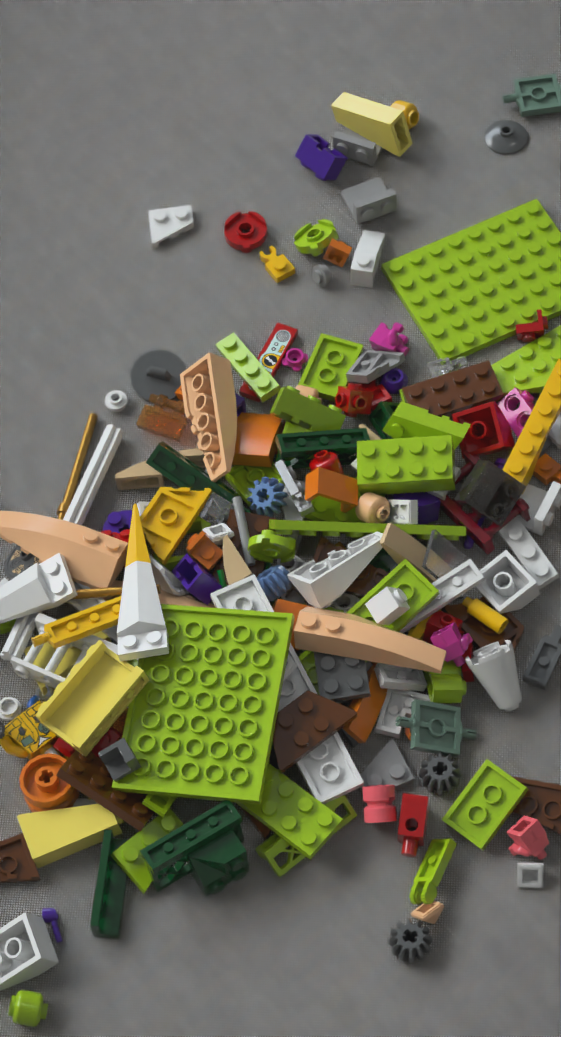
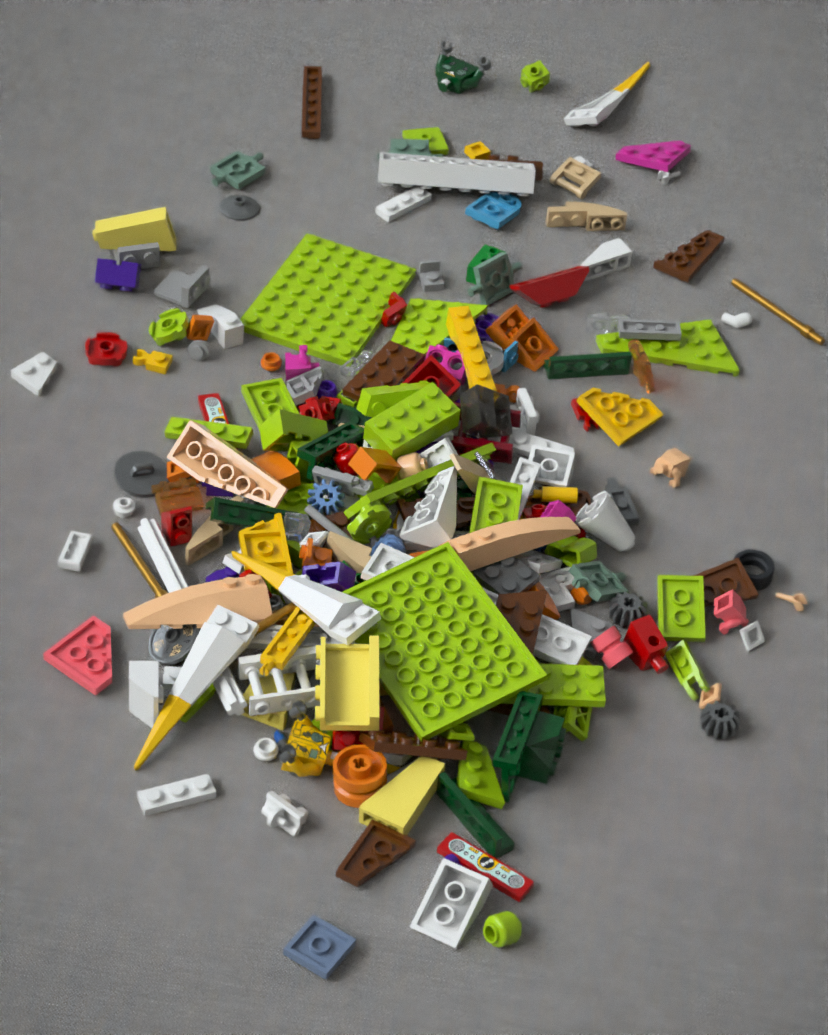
camera: 50 degrees left, 15 degrees down
(37, 422) = (75, 551): none -> white plate
(76, 940) = (473, 858): none -> tile
(119, 759) = (415, 710): dark grey panel -> none
(133, 445) = (177, 525): none -> red slope
(293, 354) = (236, 412): dark pink plate -> none
(373, 320) = (271, 361): none -> orange plate
(388, 605) = (502, 507): white brick -> none

